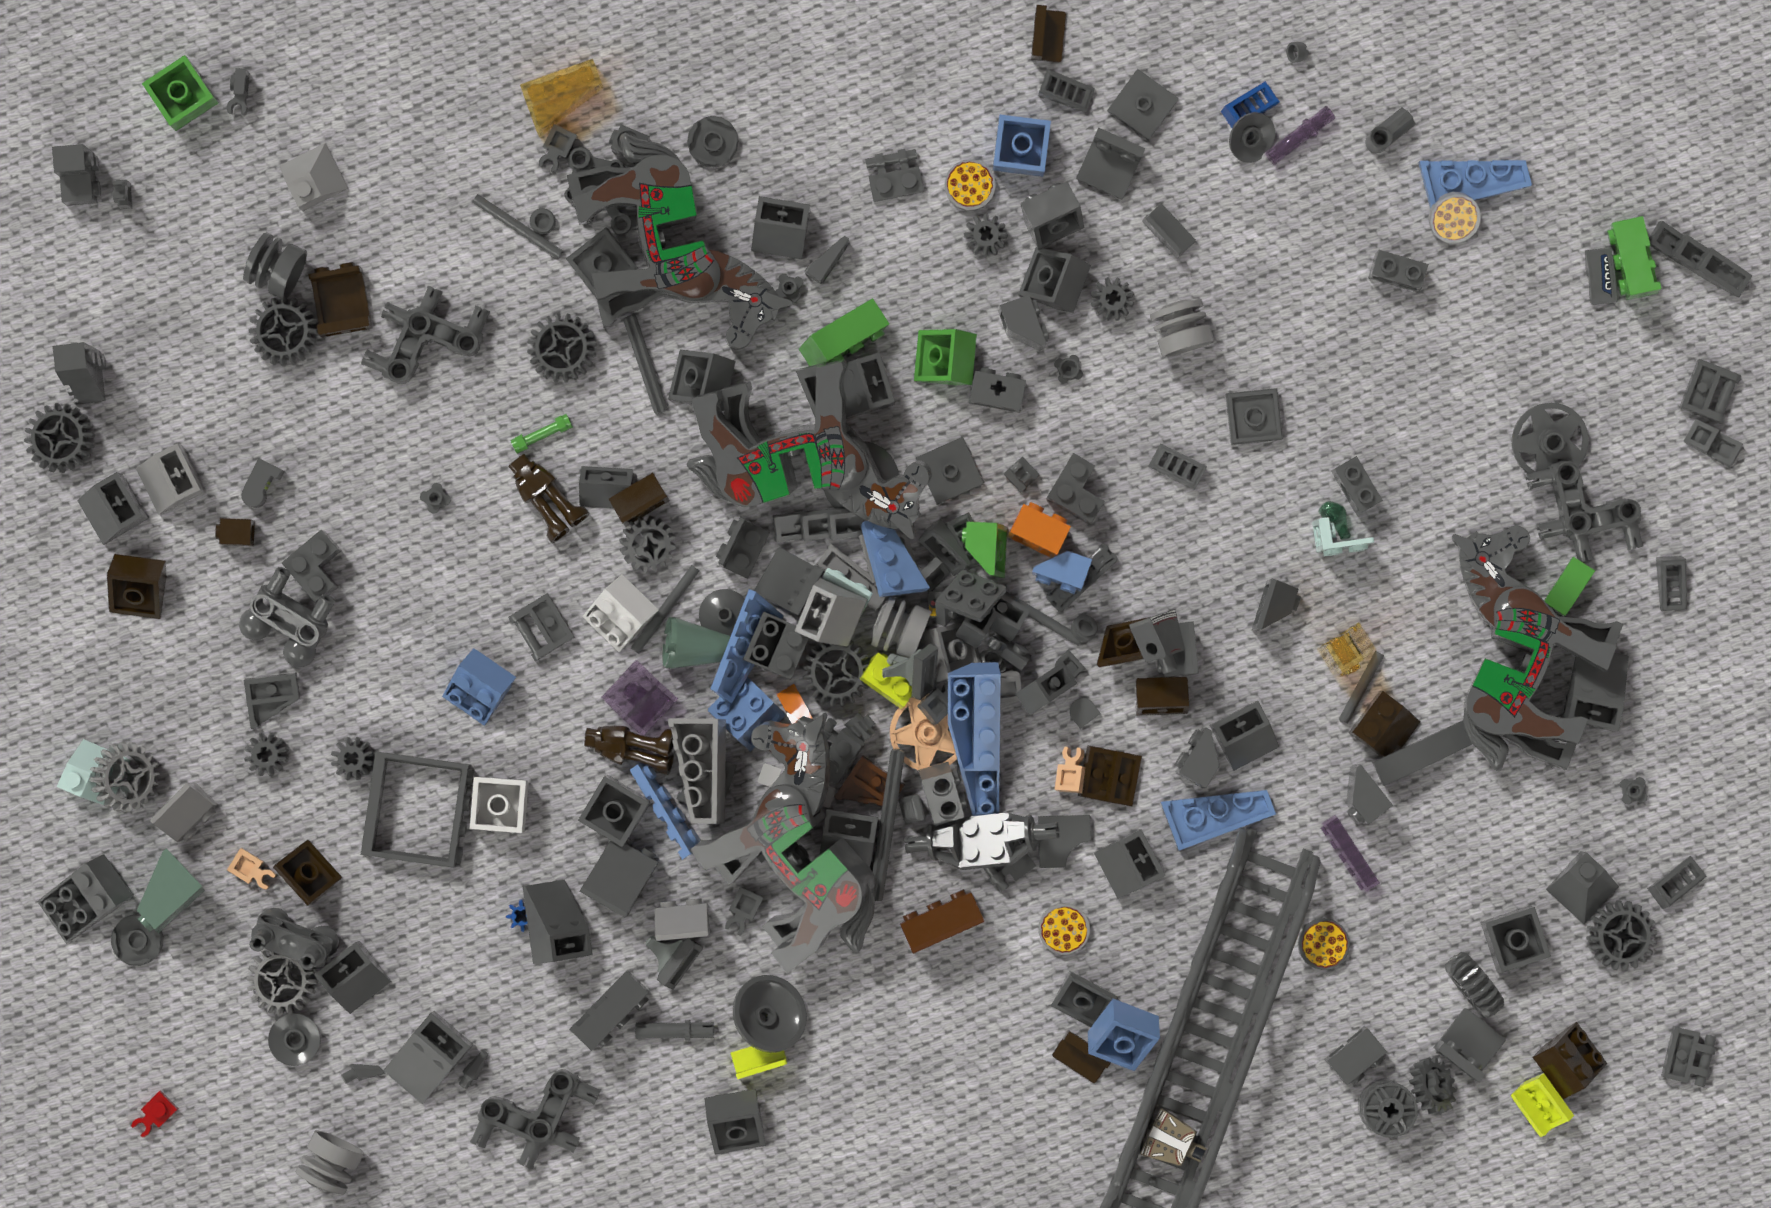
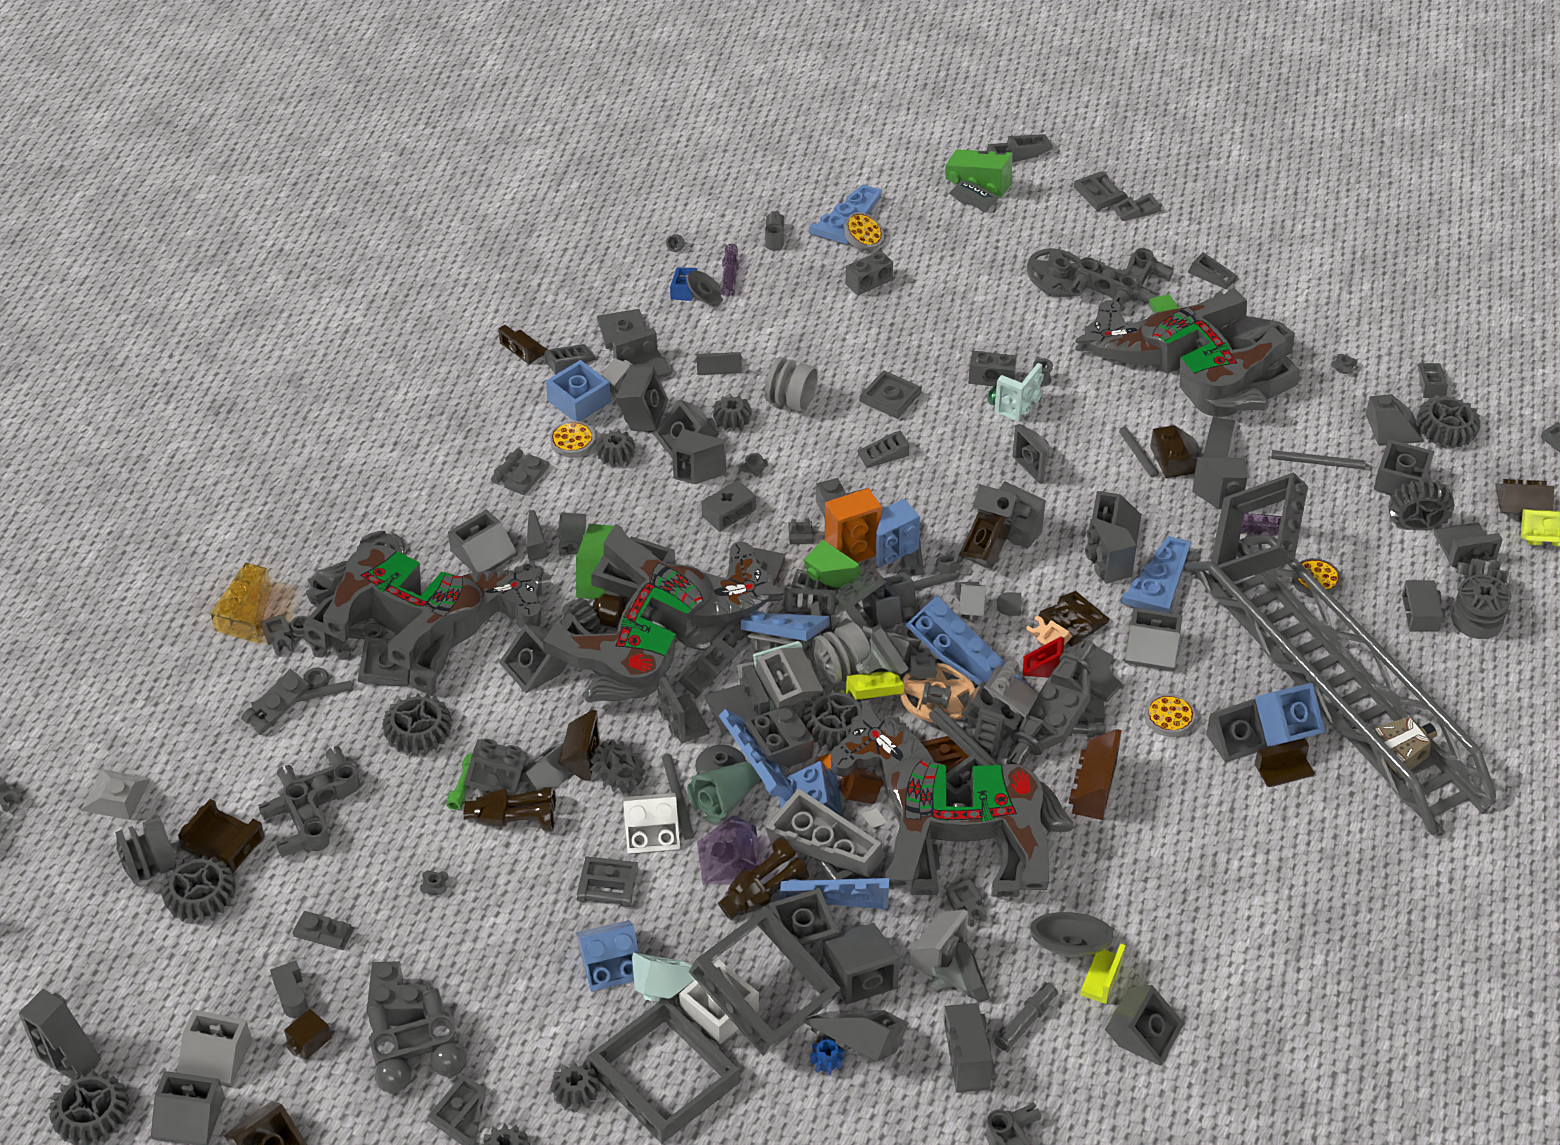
camera: 45 degrees left, 40 degrees down
(330, 455) = (323, 930): none -> dark grey plate
(486, 747) = (659, 976): none -> light aqua slope
(491, 216) = (276, 701): none -> dark grey plate
(531, 787) = (737, 1007): none -> dark grey window
(573, 448) = (495, 766): none -> dark grey bracket
(645, 364) = (486, 687): dark grey axle -> none
(767, 383) = (584, 614): none -> dark grey gear
(794, 397) = (609, 609): none -> dark brown head
(851, 292) = (570, 532): none -> dark grey piece
(914, 740) = (928, 698): none -> dark grey bush
(945, 357) = (672, 517): bright green slope -> none
(966, 797) = (1010, 689): none -> light grey hinge
(1036, 789) = (1044, 659): none -> red slope
(1069, 165) = (616, 373): none -> light grey brick
(1162, 696) = (1043, 550): dark brown panel -> none
(1295, 848) = (1231, 519): none -> dark grey window
(1346, 650) = (1106, 429): clear yellow wedge -> none
(1396, 524) = (1046, 371): none -> dark grey bush
(1480, 849) = (1318, 459): none -> dark grey bar

